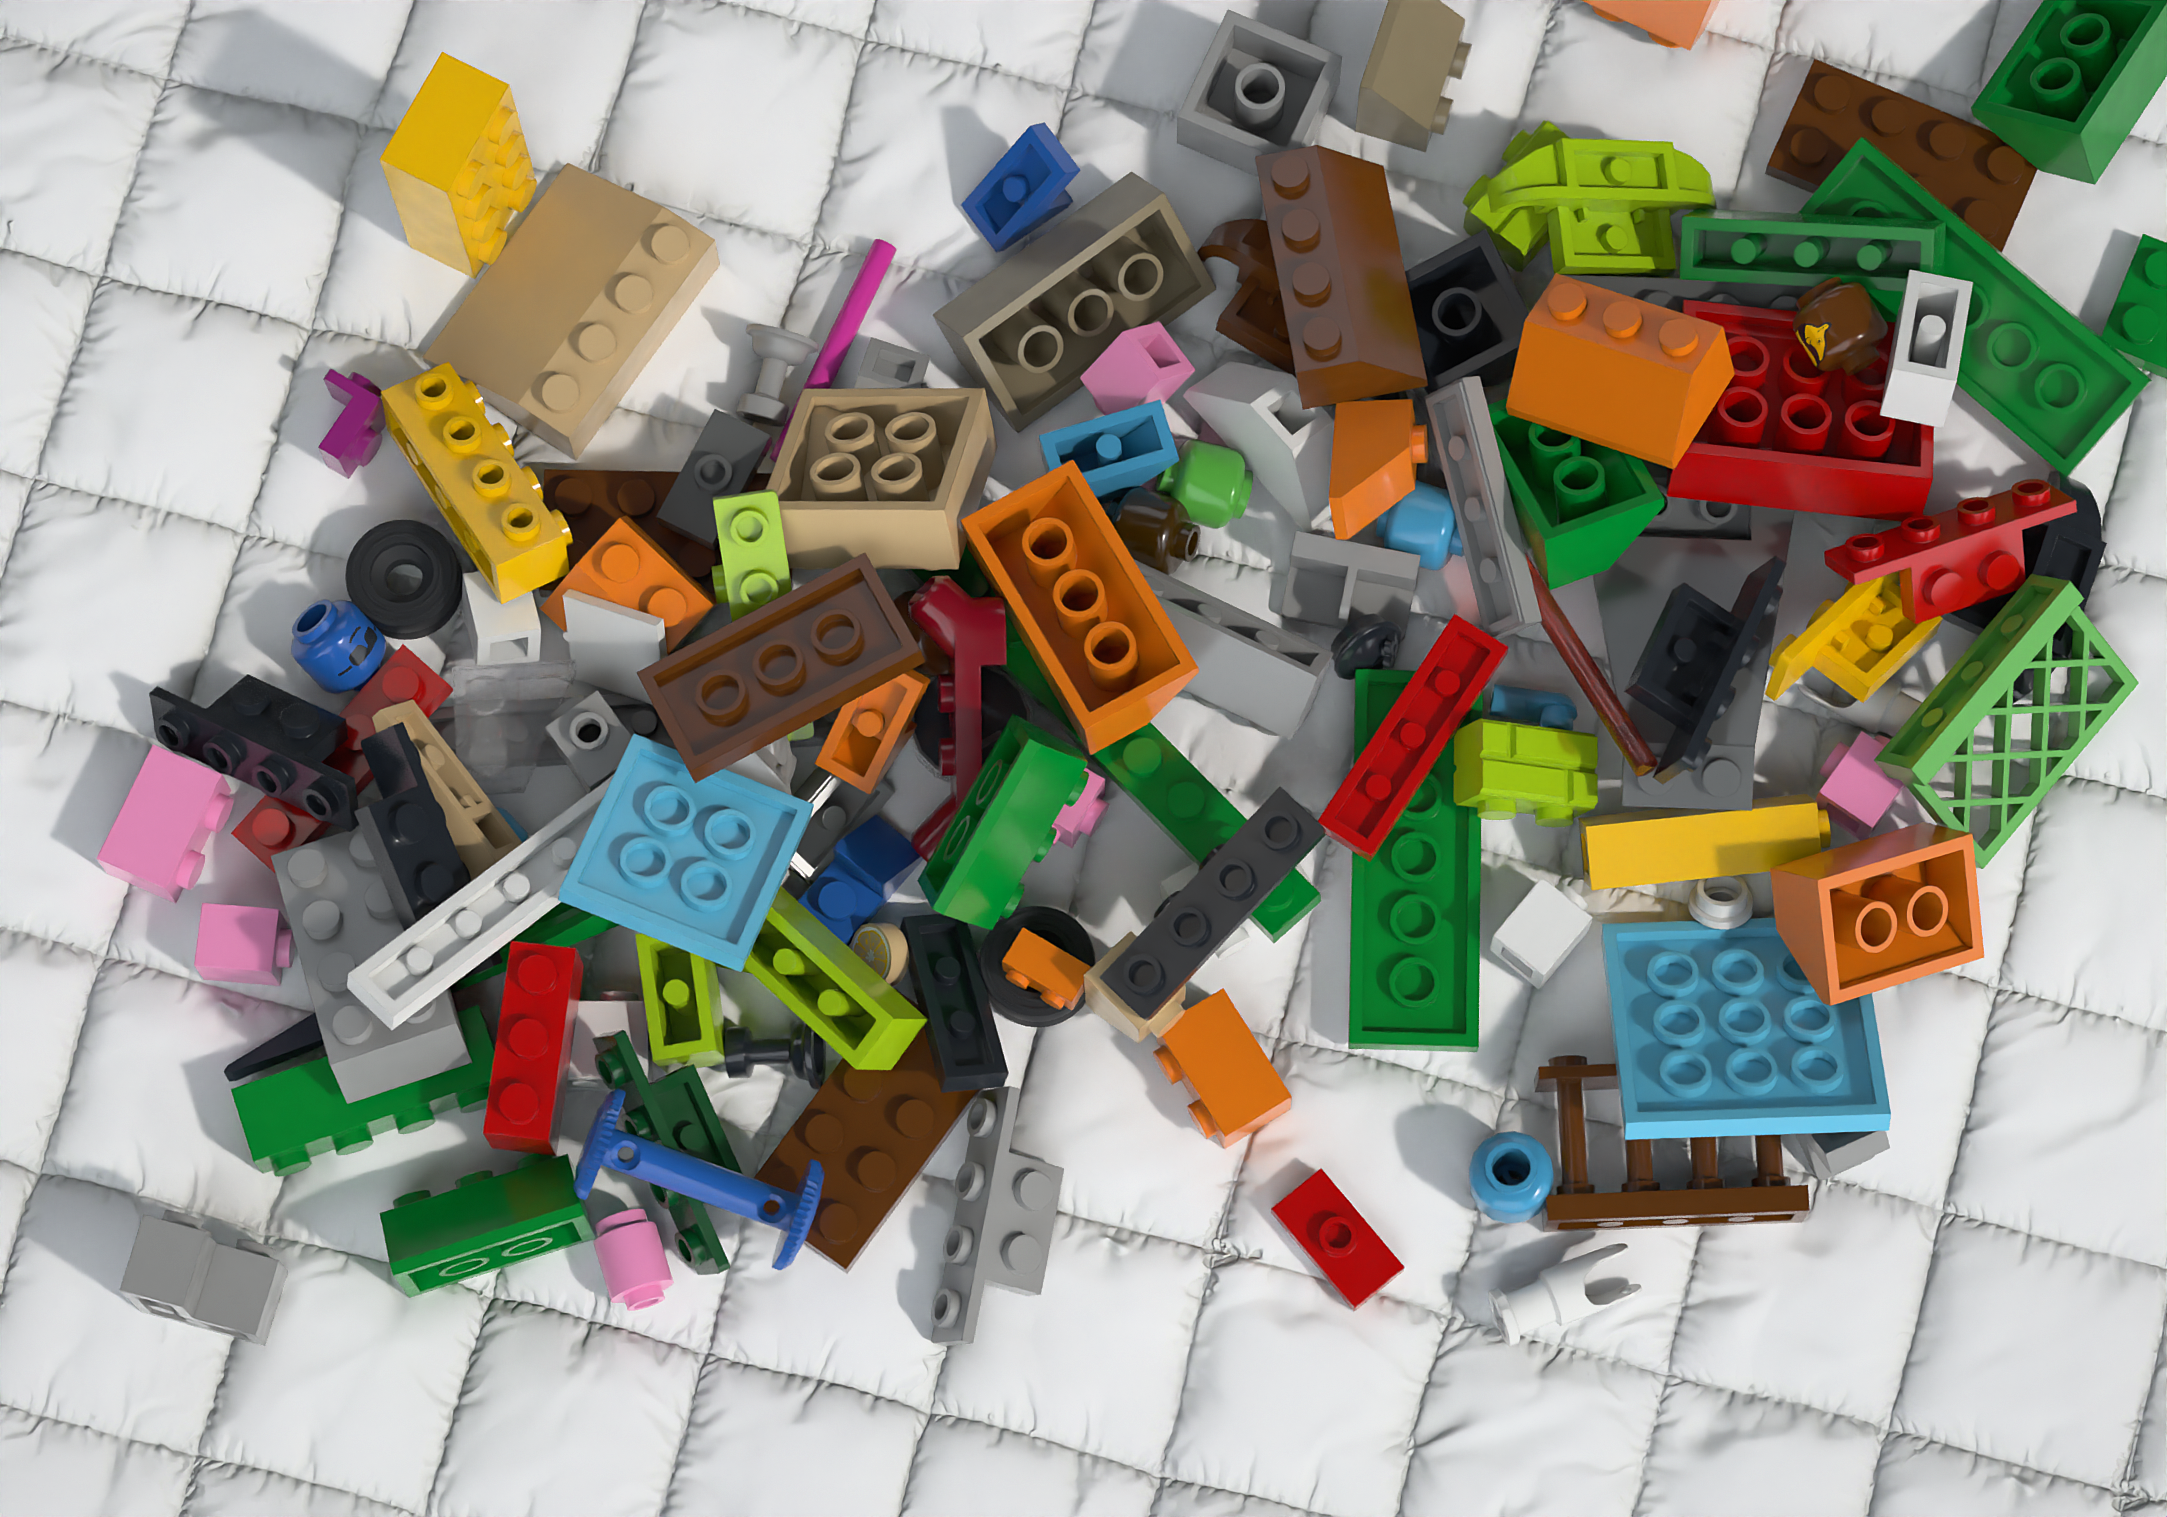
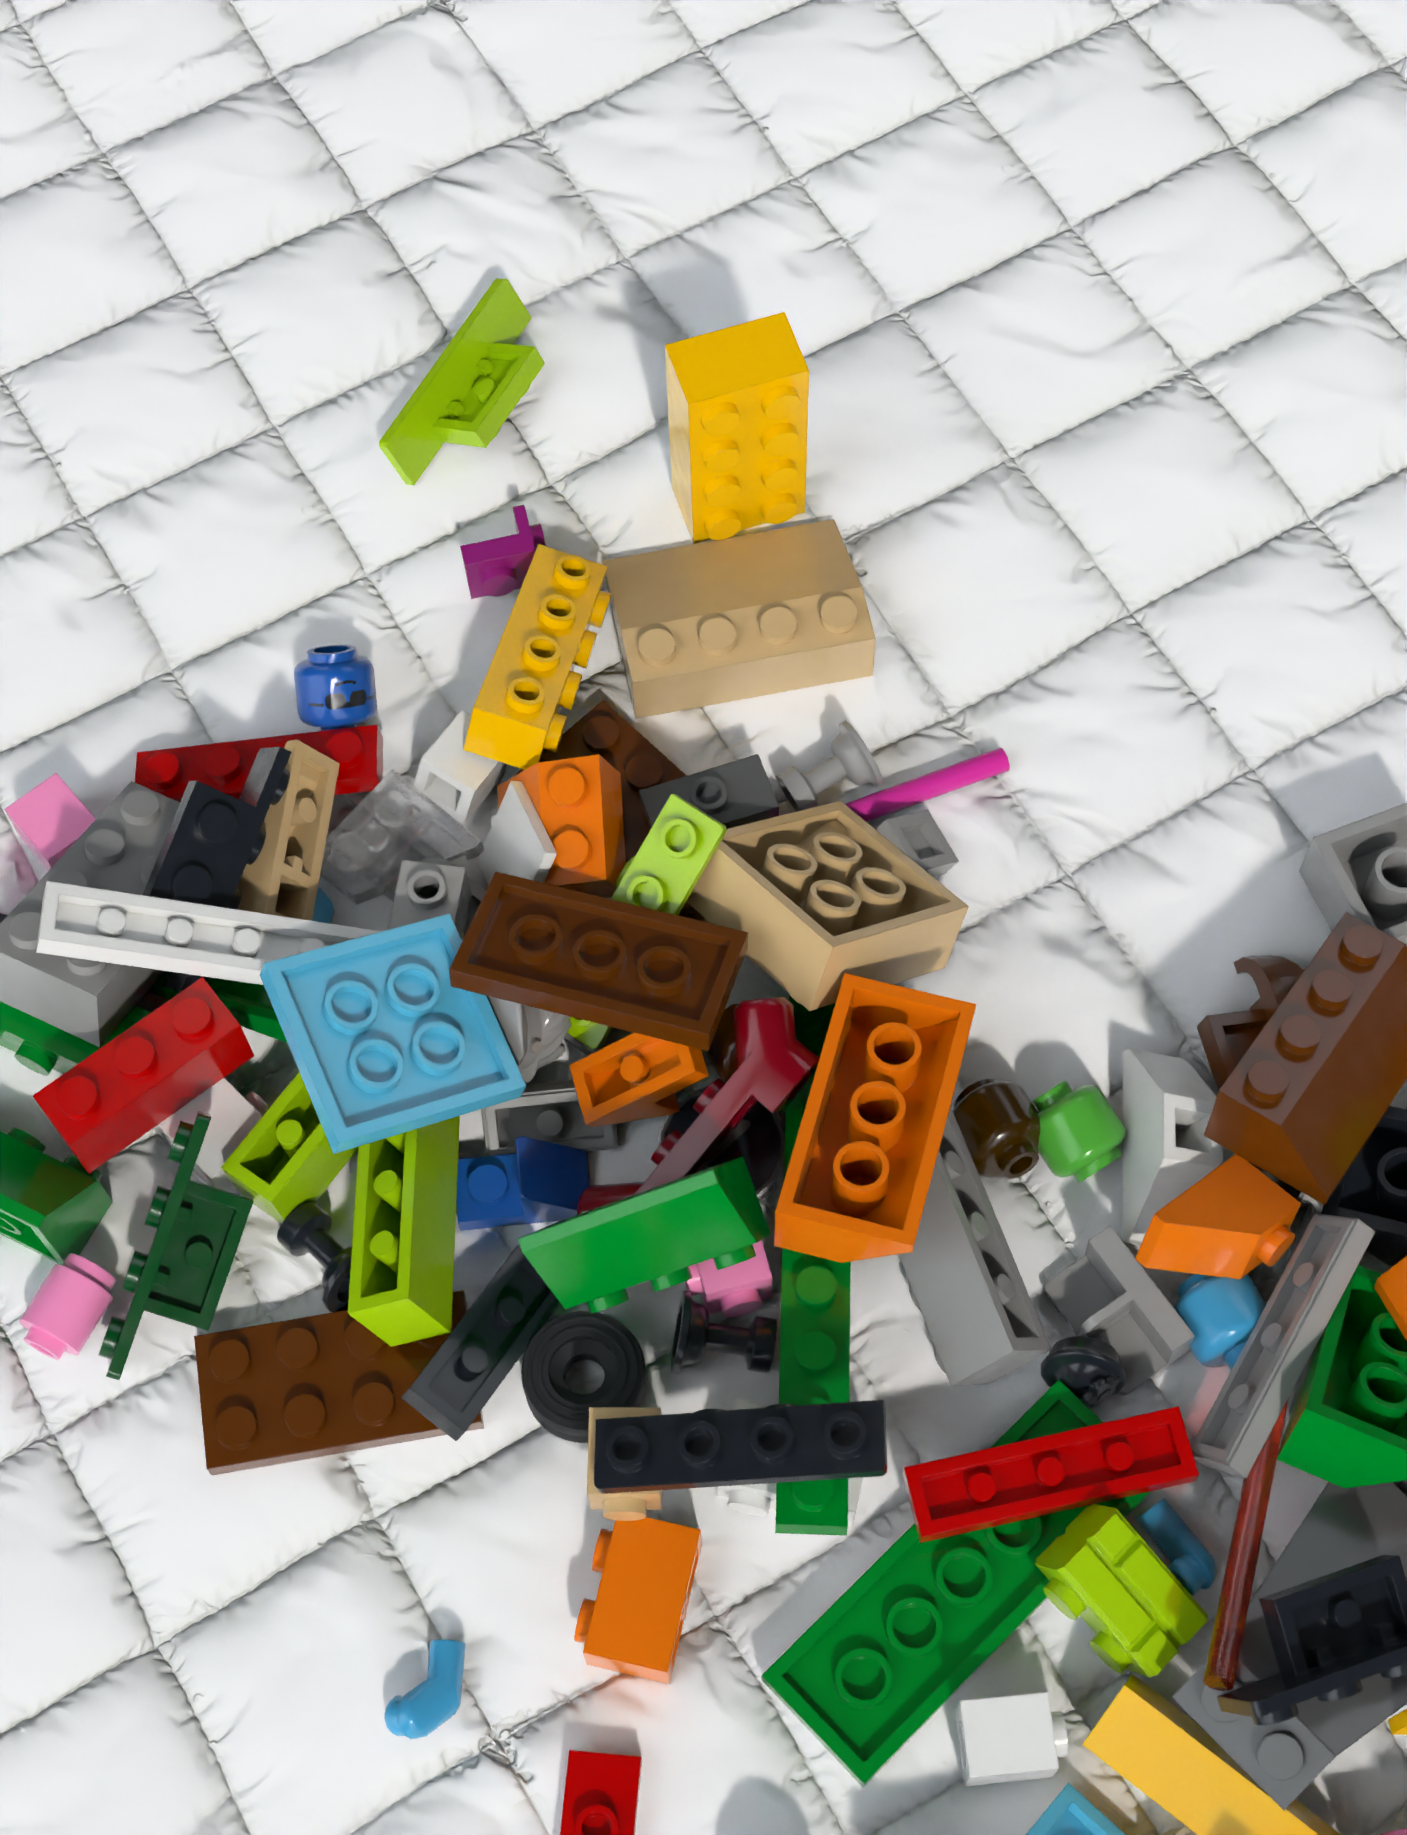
camera: 45 degrees right, 10 degrees down
(166, 824) = (100, 706): bright pink brick -> none
(174, 305) = (468, 386): none -> lime bracket
(266, 743) = (216, 701): black bracket -> none
(400, 544) = (423, 658): black tyre -> none
(699, 1180) = (149, 1283): blue hose -> none
(883, 949) = (479, 1254): tan tile -> none
(999, 1220) = (356, 1549): light grey bracket -> none
(1022, 188) = (1145, 801): blue slope -> none
(1046, 969) = (578, 1377): orange piece -> none
(1070, 294) = (1108, 914): dark tan slope -> none
(1084, 867) = (696, 1334): none -> black piece
(1114, 450) = (1021, 1039): dark azure slope -> none
(1137, 370) = (1101, 1002): bright pink brick -> none
(1151, 1262) = (435, 1698): none -> dark azure arm

